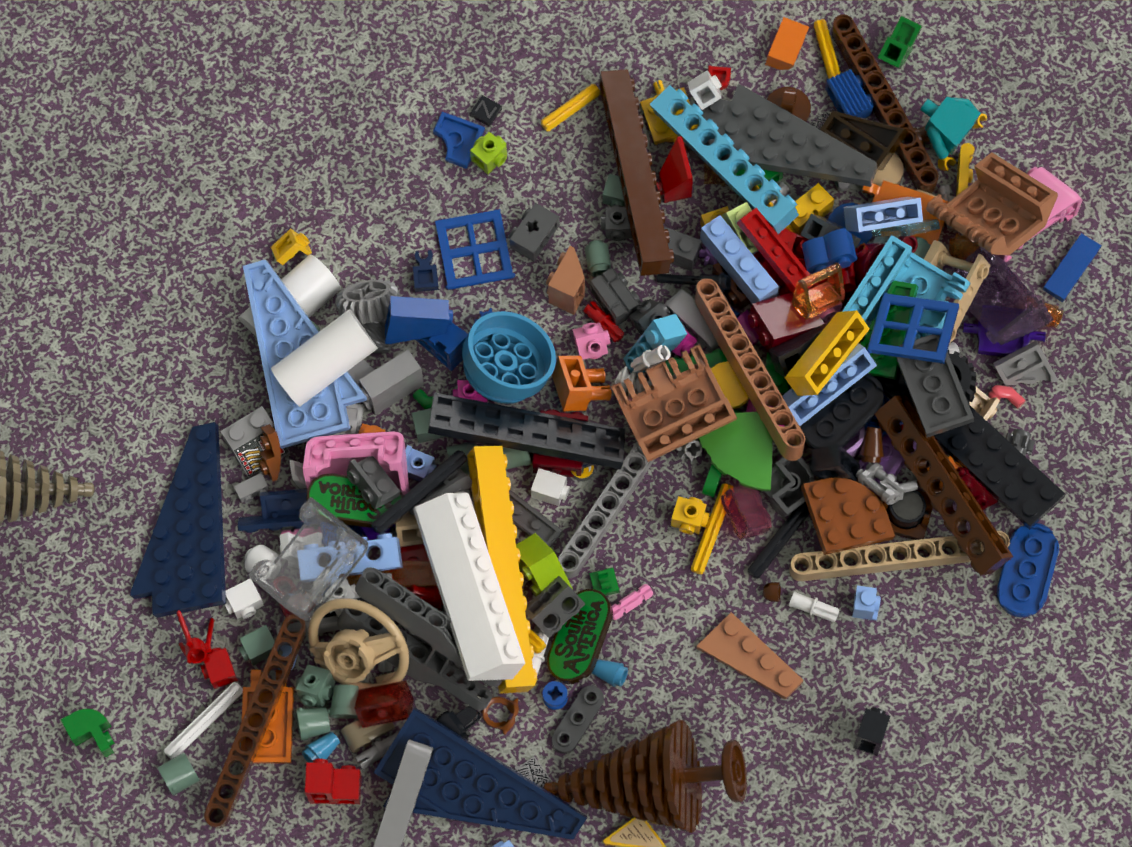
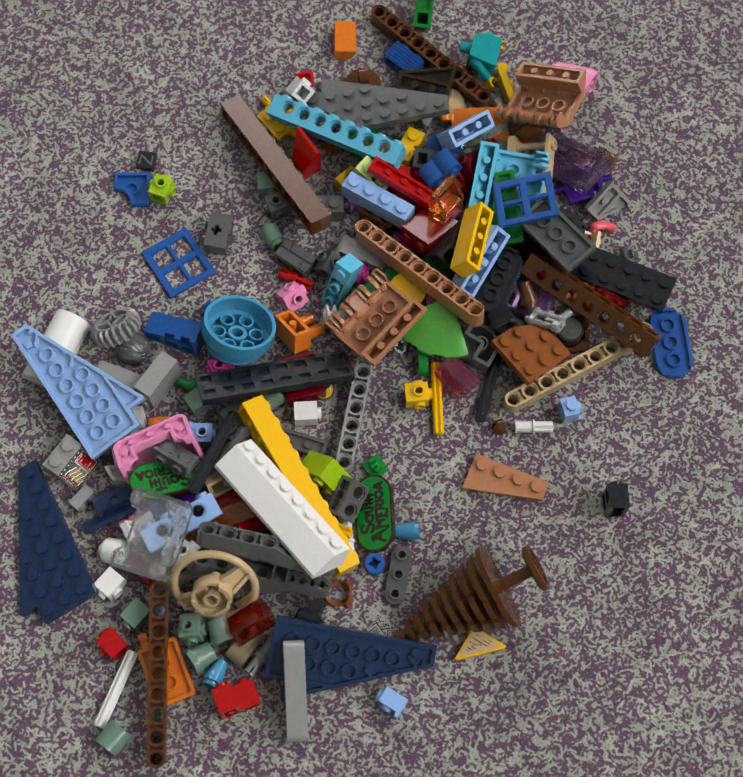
camera: 25 degrees left, 0 degrees up
(87, 724) = (27, 727): green brick -> none
(195, 649) = (88, 637): red plant -> none
(271, 455) = (88, 469): dark orange slope -> none
(289, 245) = (39, 308): yellow bracket -> none
(323, 358) = (101, 379): white brick -> none
(416, 318) = (158, 326): blue slope -> none
(425, 274) = (150, 293): dark blue plate -> none
(567, 283) = (259, 260): nougat slope -> none
(570, 107) = (207, 137): yellow axle -> none
(631, 601) = (401, 472): bright pink axle -> none
(650, 358) = (344, 291): white axle -> none
(722, 280) = (372, 217): black pin -> none
(826, 48) = (373, 34): yellow axle -> none
(1072, 267) = (607, 123): blue tile -> none

